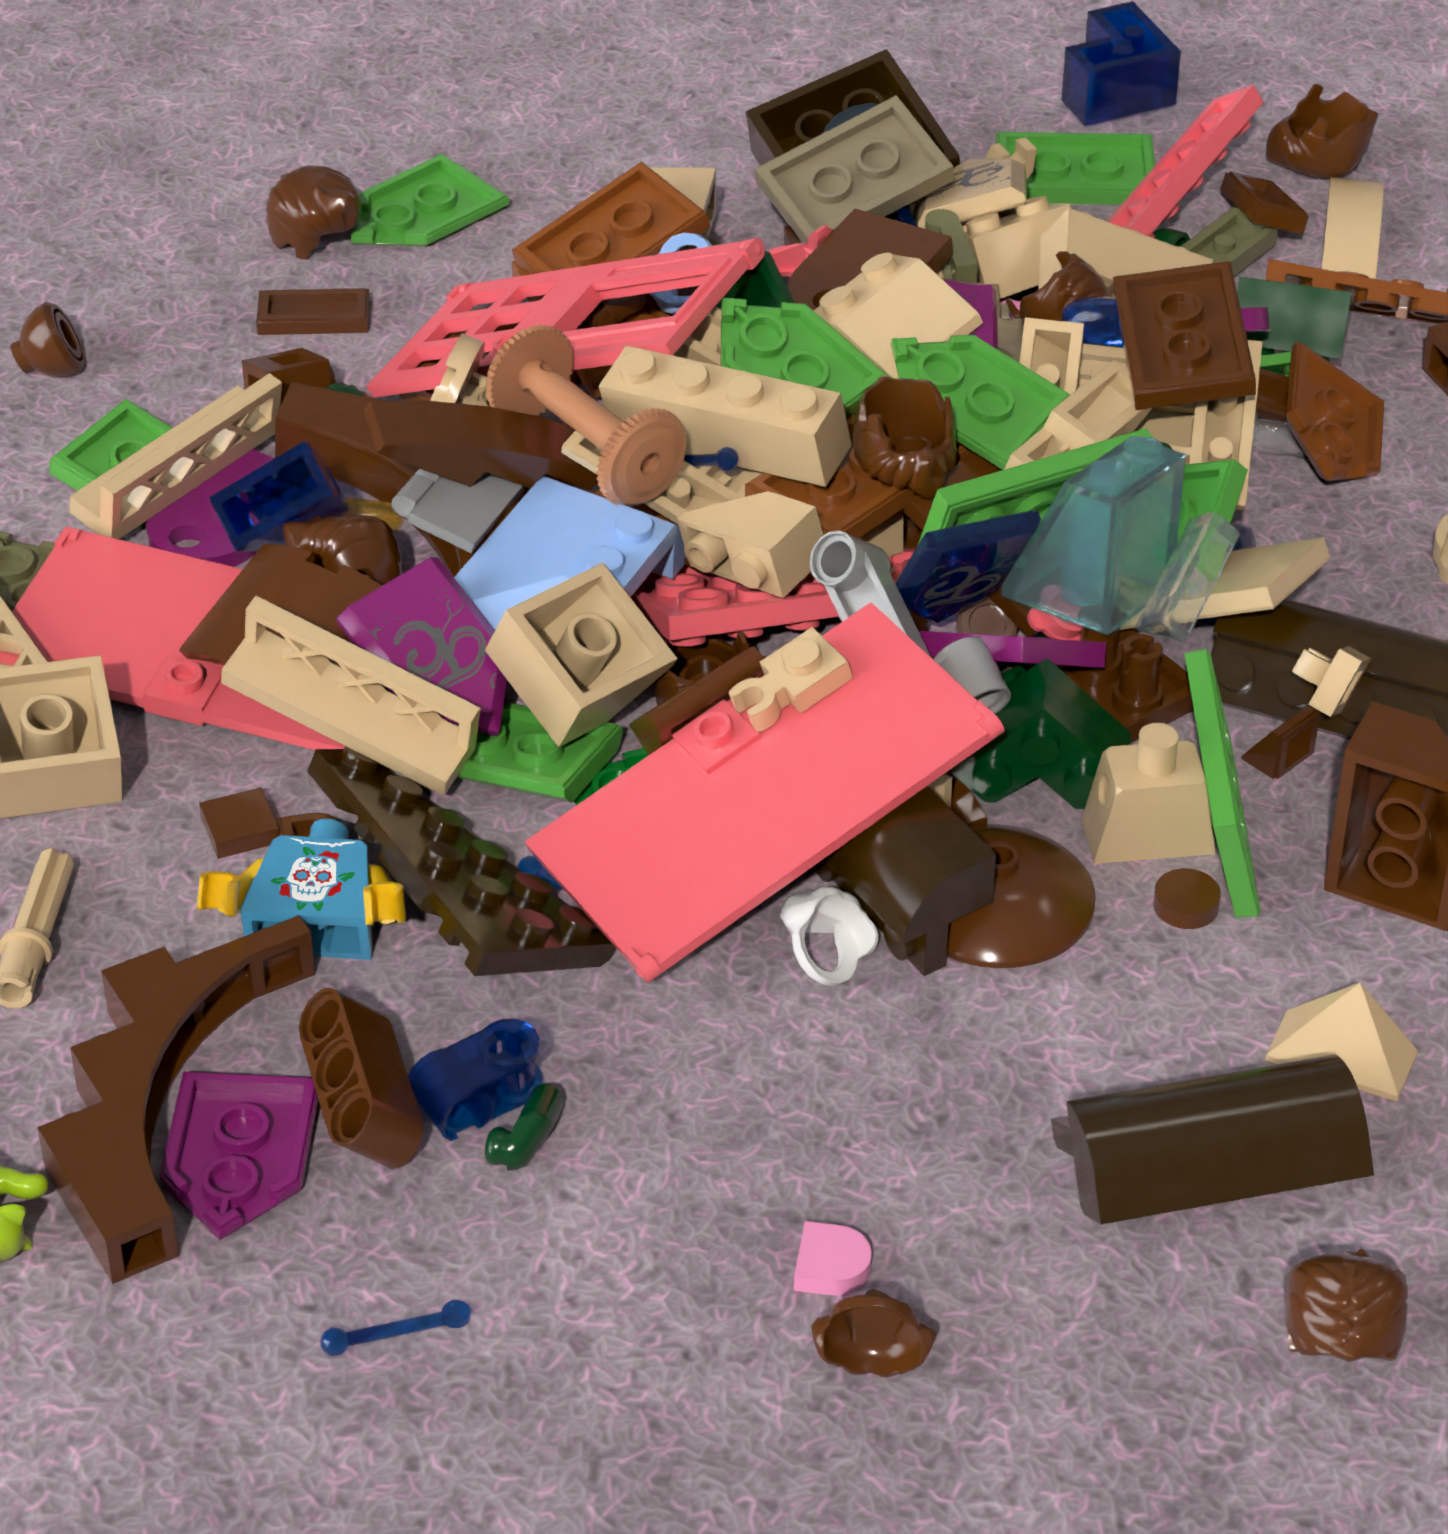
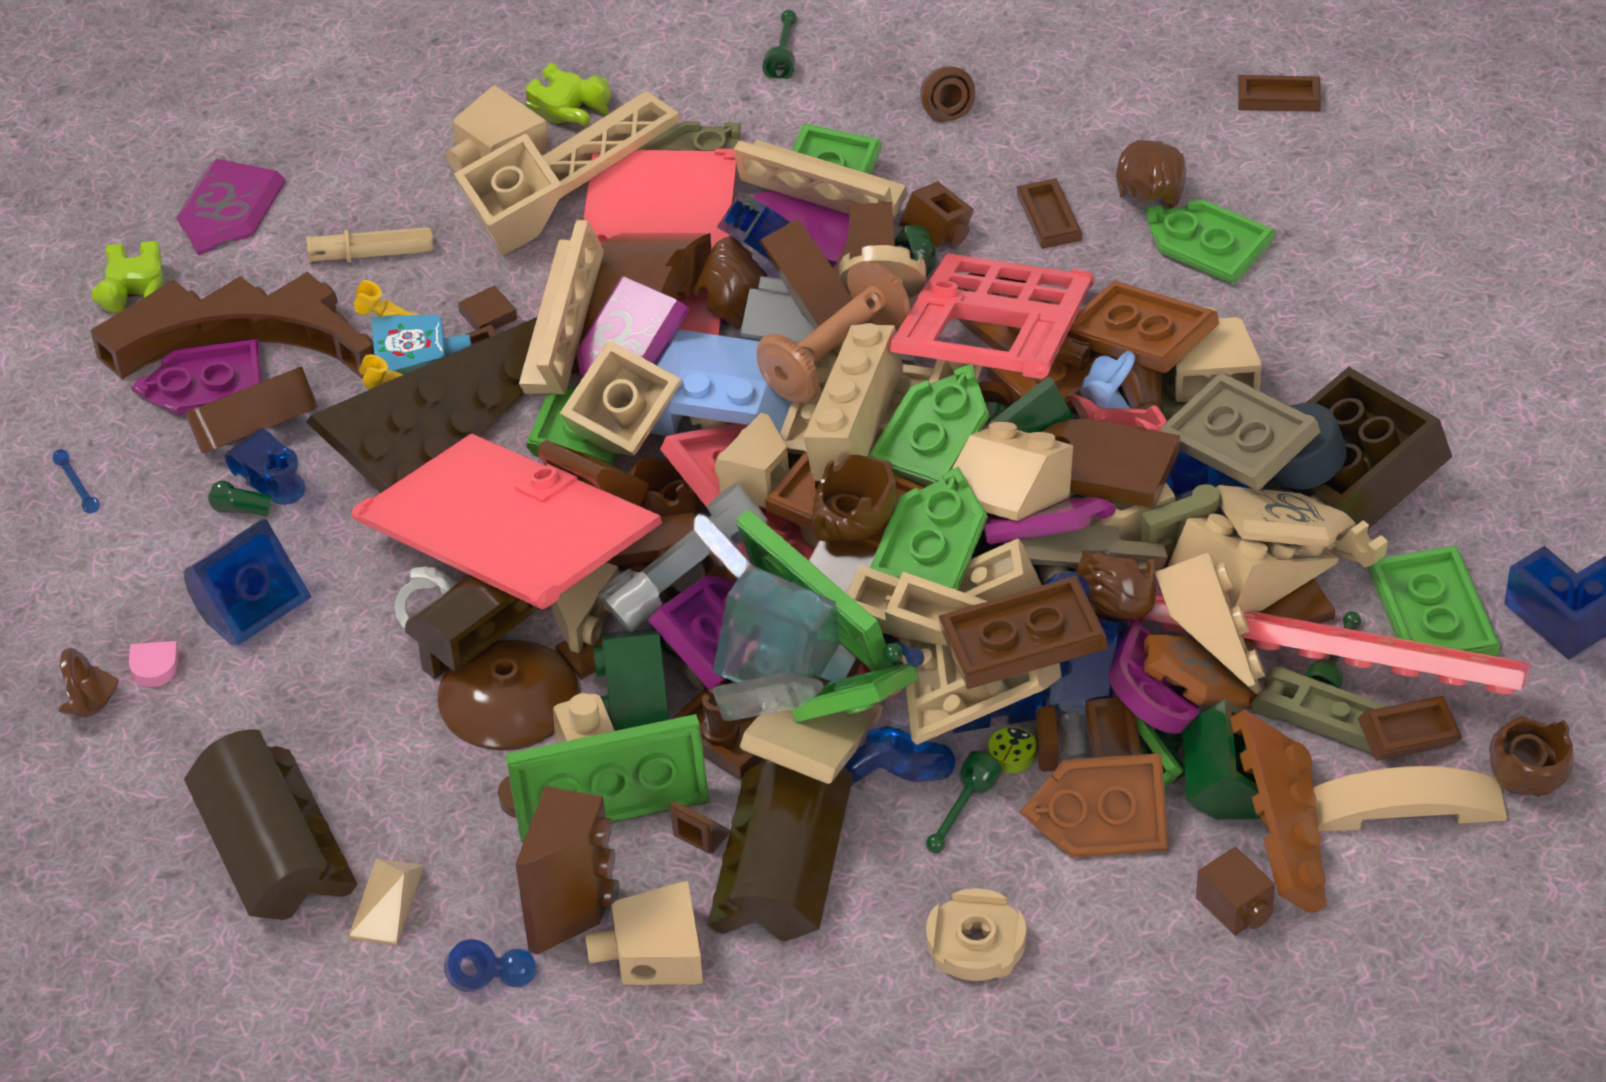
camera: 80 degrees right, 5 degrees up
(198, 113) = (1279, 93): none -> reddish brown tile
(735, 1116) = (245, 584): none -> clear blue brick
(793, 675) = (582, 499): tan plate -> none
(1258, 516) = (978, 775): none -> dark green hinge
(1333, 677) = (721, 822): tan tile -> none
(1346, 1307) = (125, 911): reddish brown hair -> none

